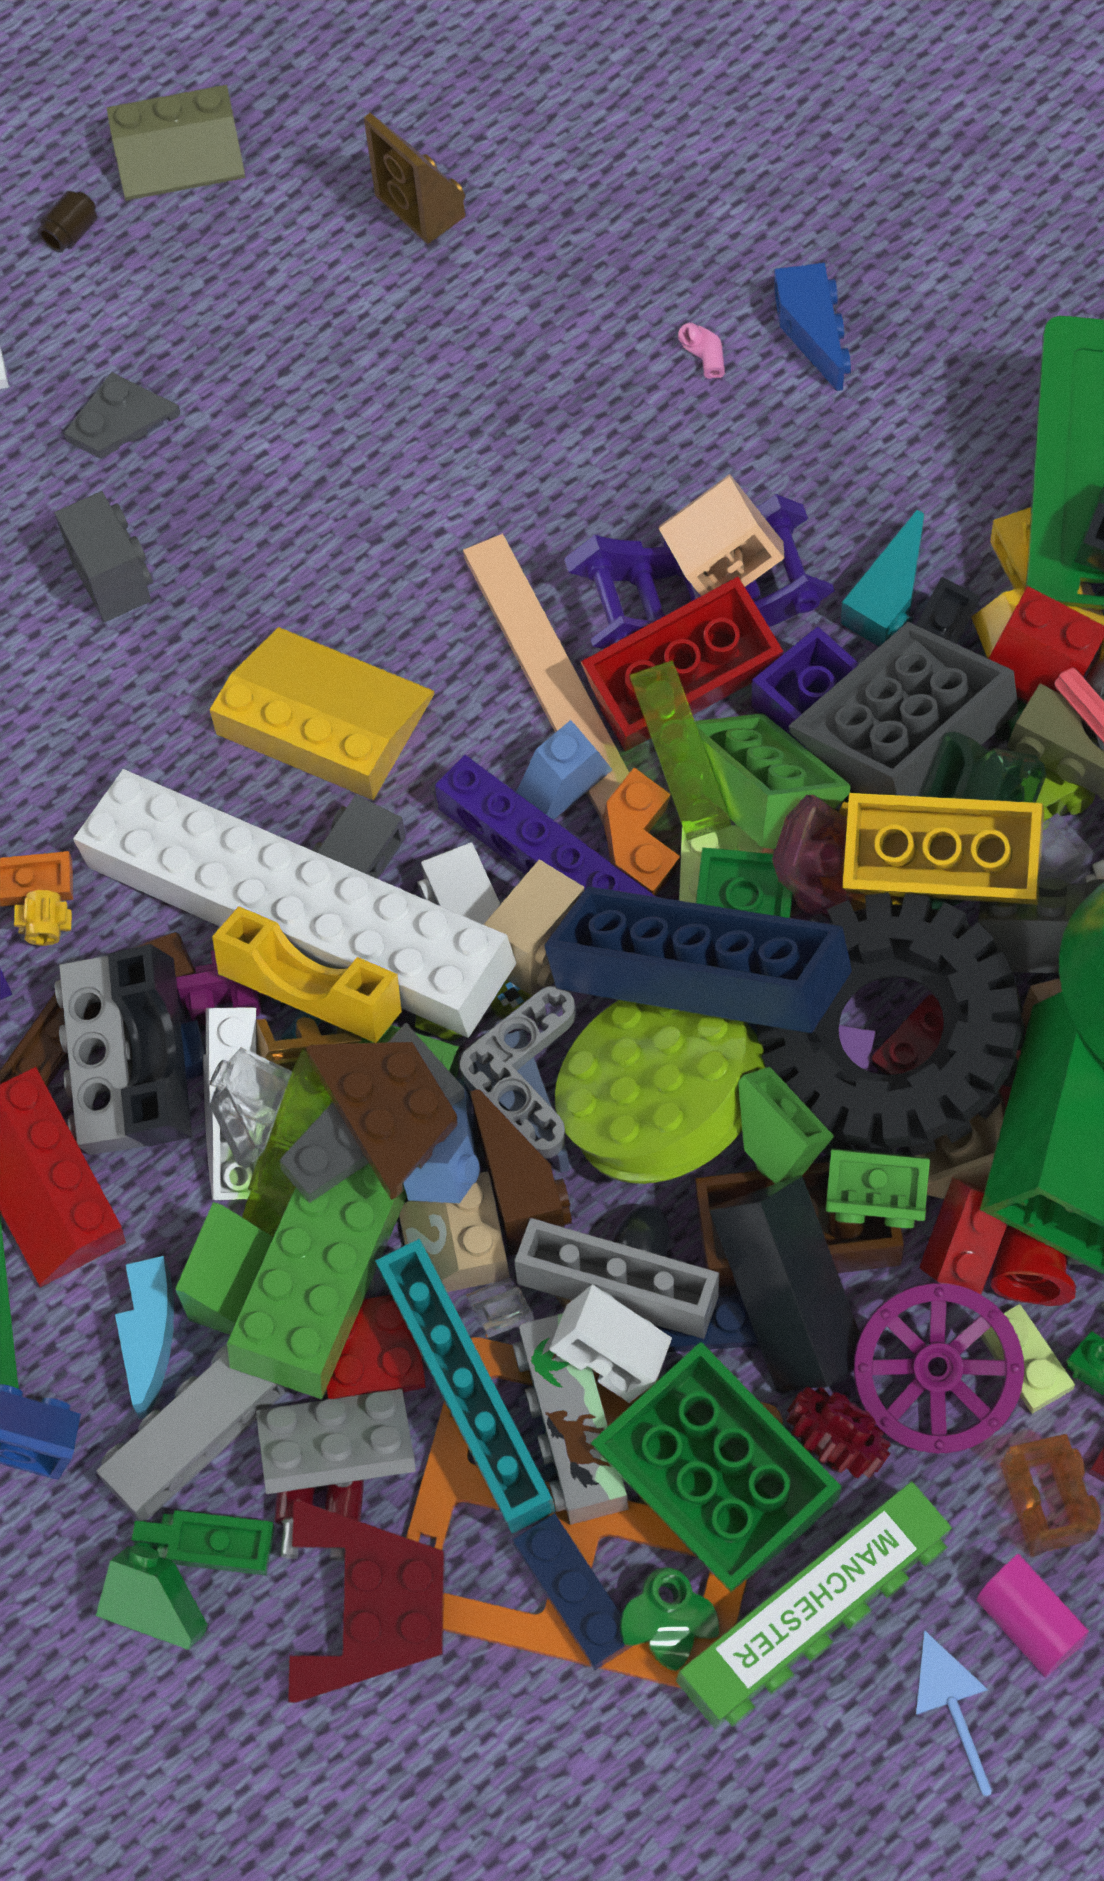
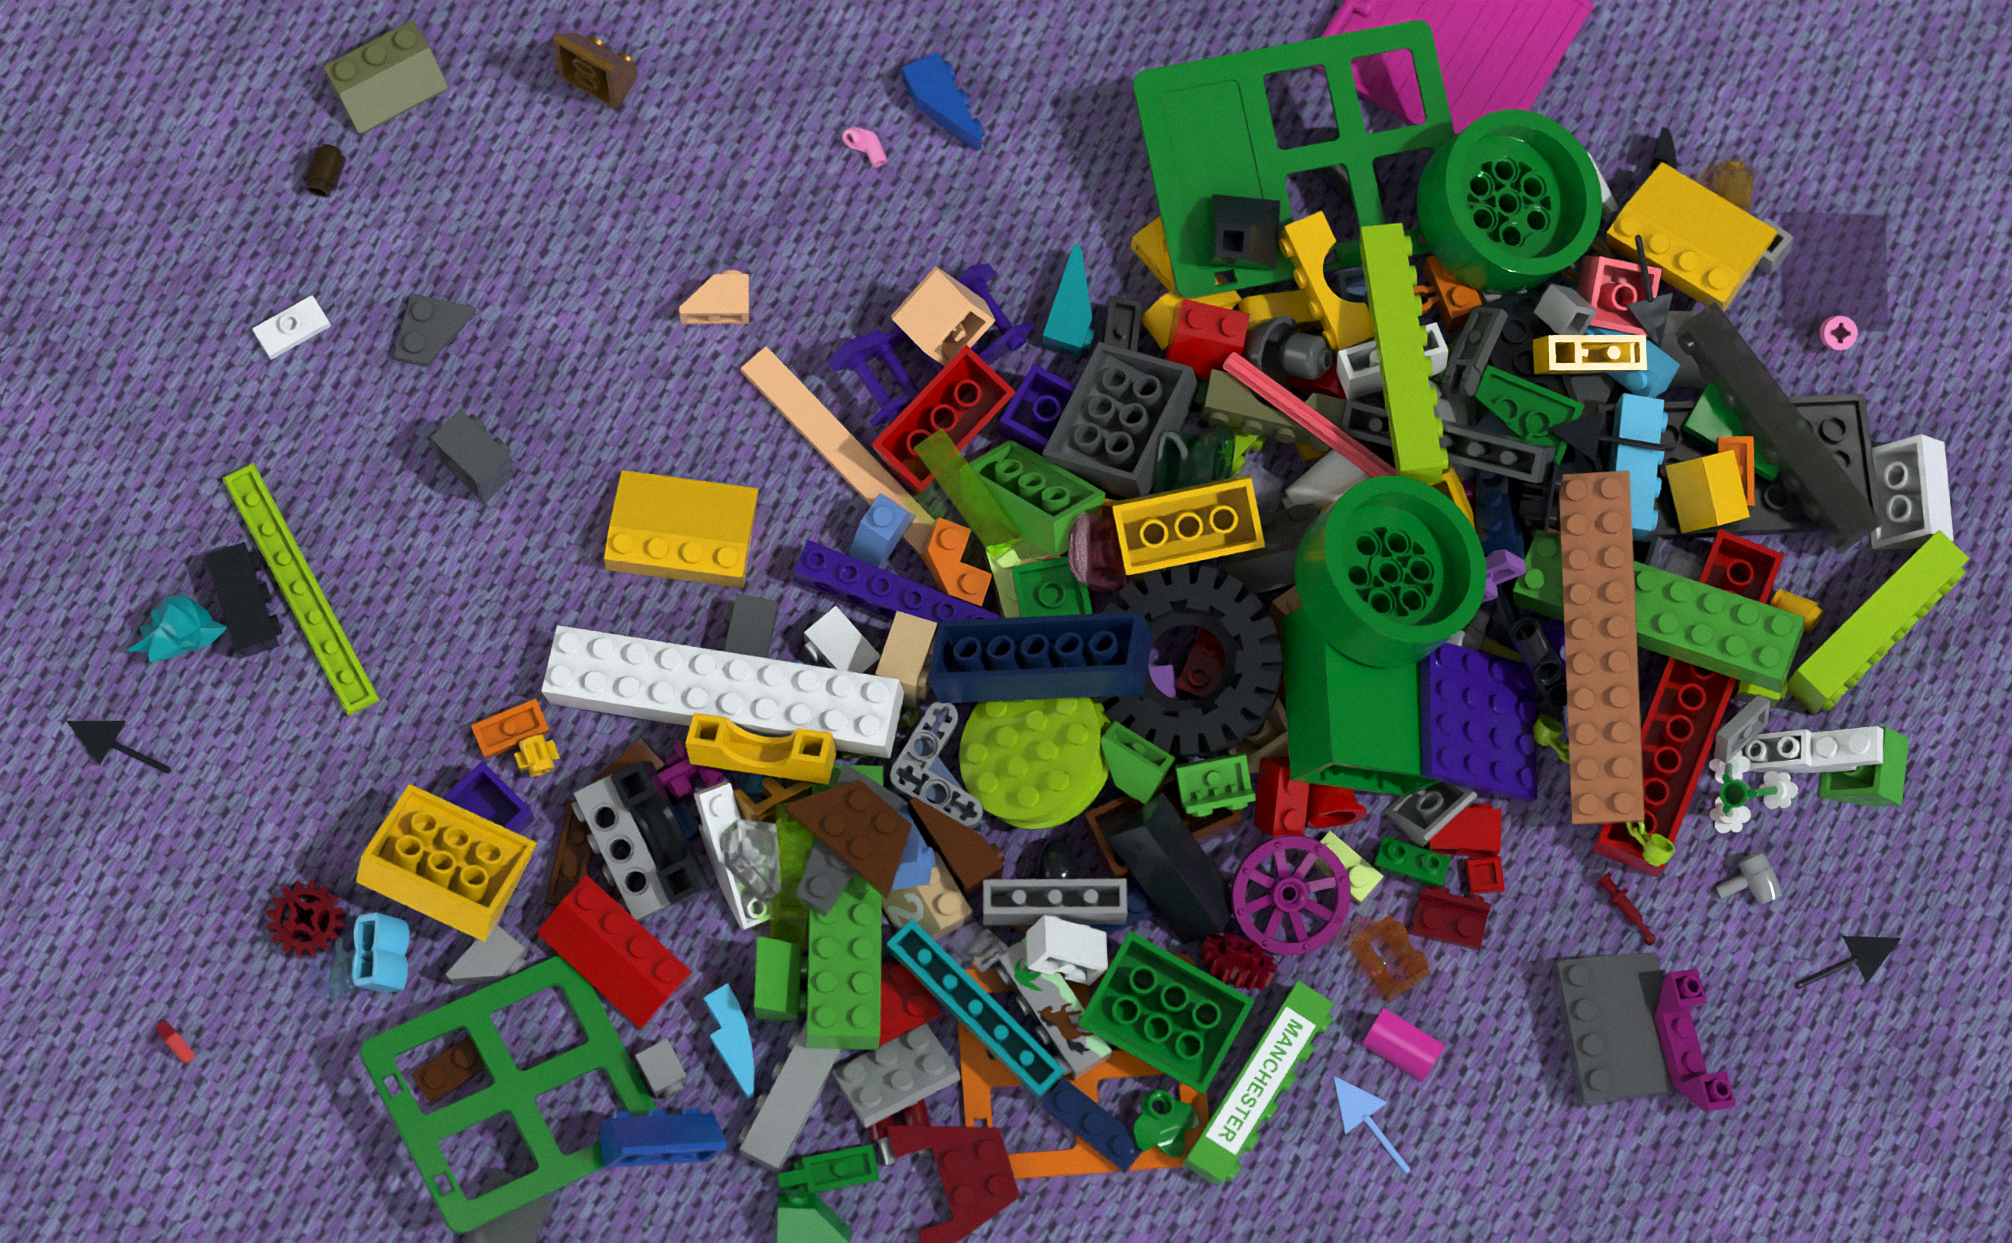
camera: 30 degrees left, 10 degrees up
(43, 1341) = (662, 1069): none -> light grey brick
(463, 469) = (719, 301): none -> light nougat slope

